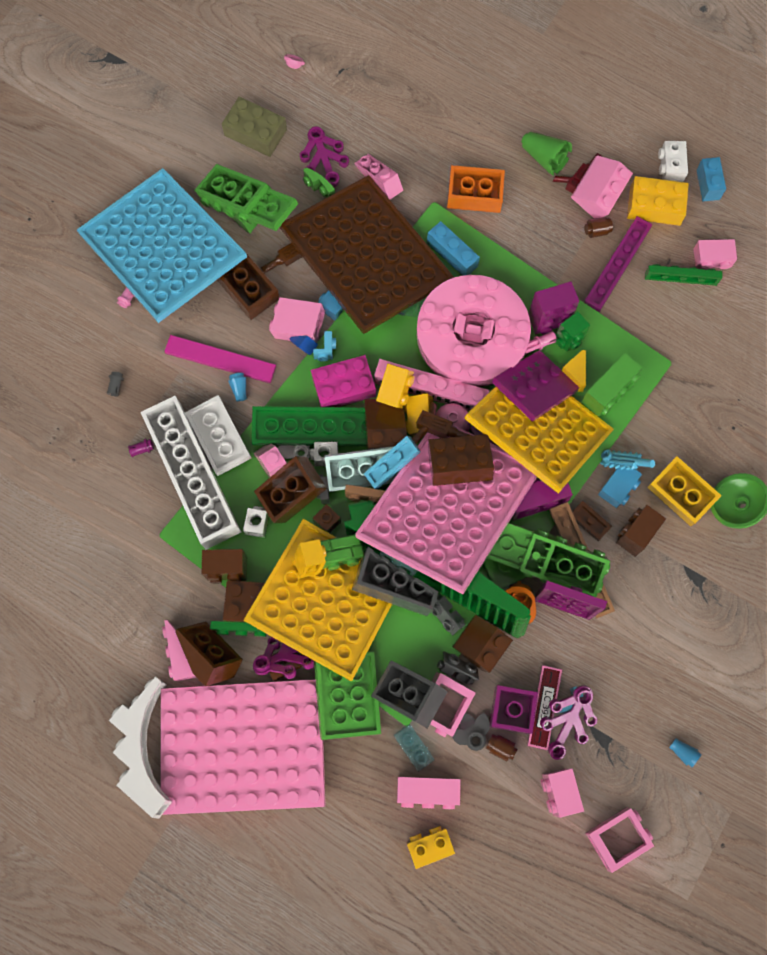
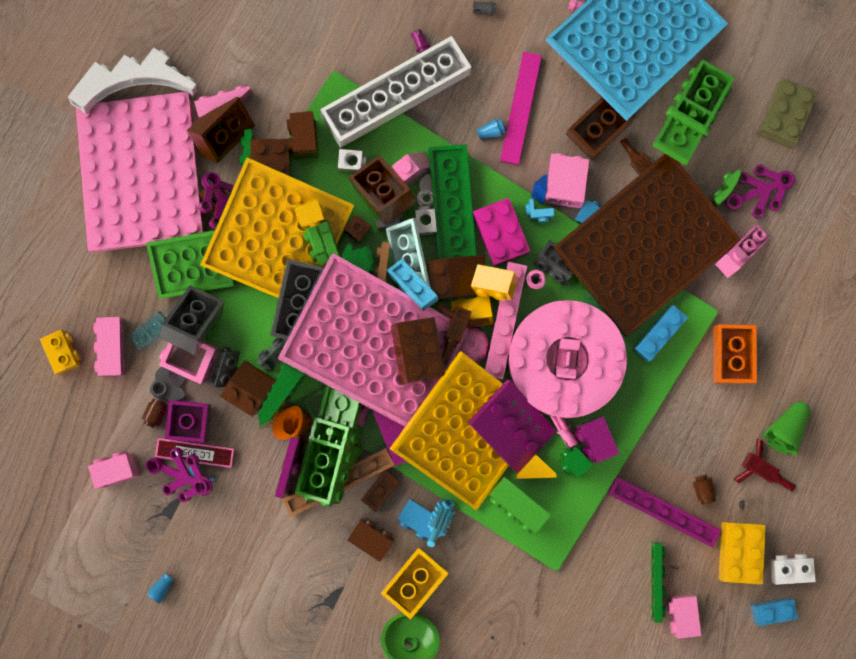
camera: 85 degrees right, 10 degrees up
(218, 435) = (437, 114): white plate -> none
(378, 338) = (552, 264): none -> dark grey bracket
(393, 352) = (539, 275): none -> bright pink cone
(601, 186) = (751, 489): bright pink slope -> none
(601, 849) = (81, 503): bright pink window -> none

